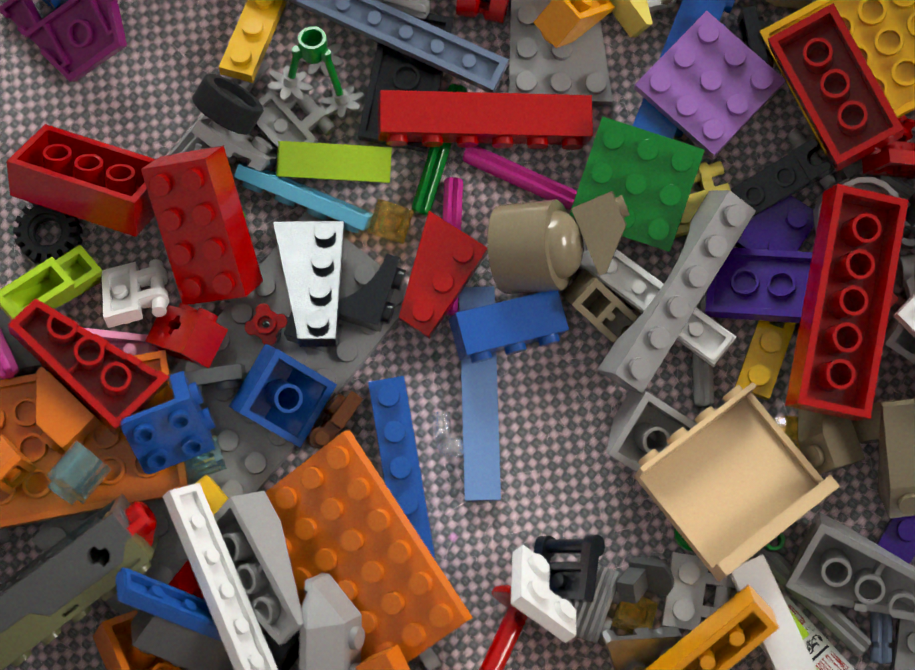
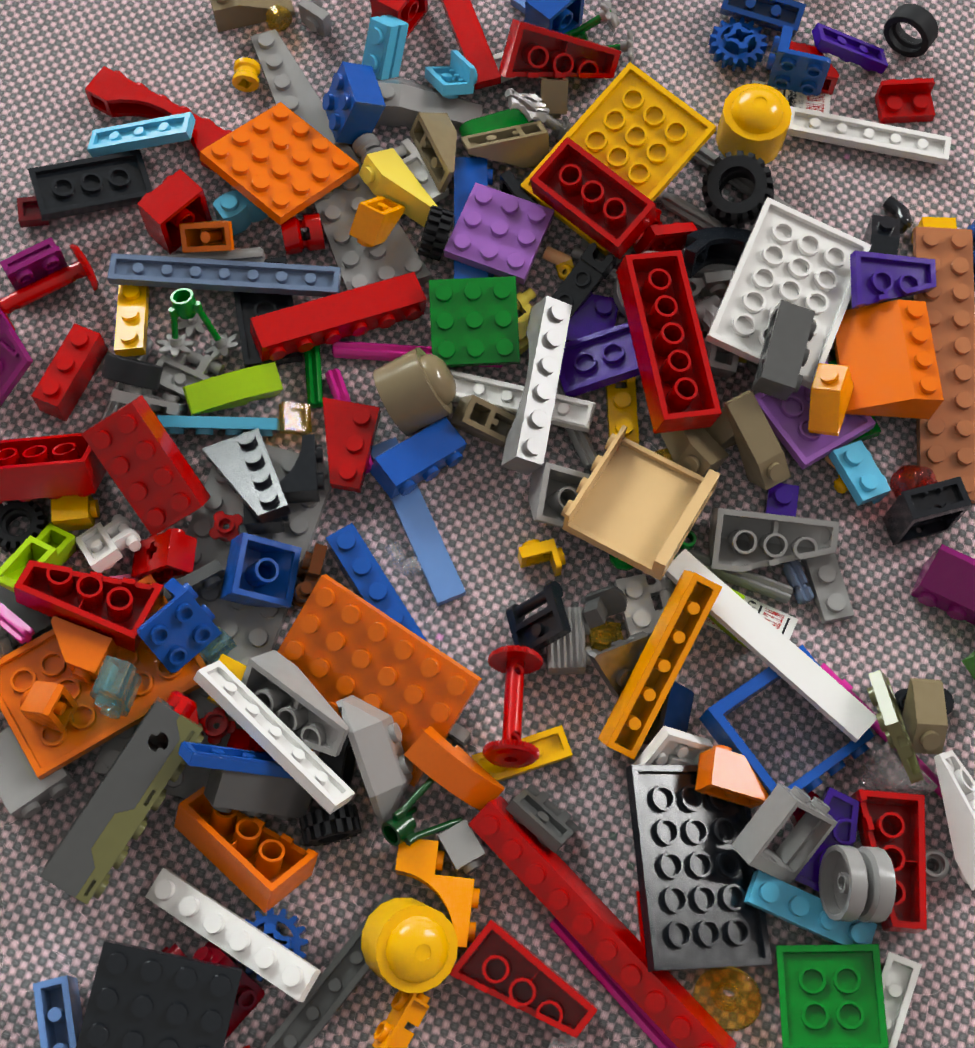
camera: 30 degrees left, 10 degrees down
(110, 243) = (74, 512): none -> yellow brick
(163, 72) = (70, 372): none -> red brick
(167, 555) = (226, 727): none -> red plate
(532, 595) = (524, 643): white plate -> none
(595, 484) = (538, 552): none -> yellow bracket
(602, 227) = (461, 355): dark tan slope -> none
(636, 54) = (435, 232): none -> black tyre
(774, 141) = (562, 261): none -> arm

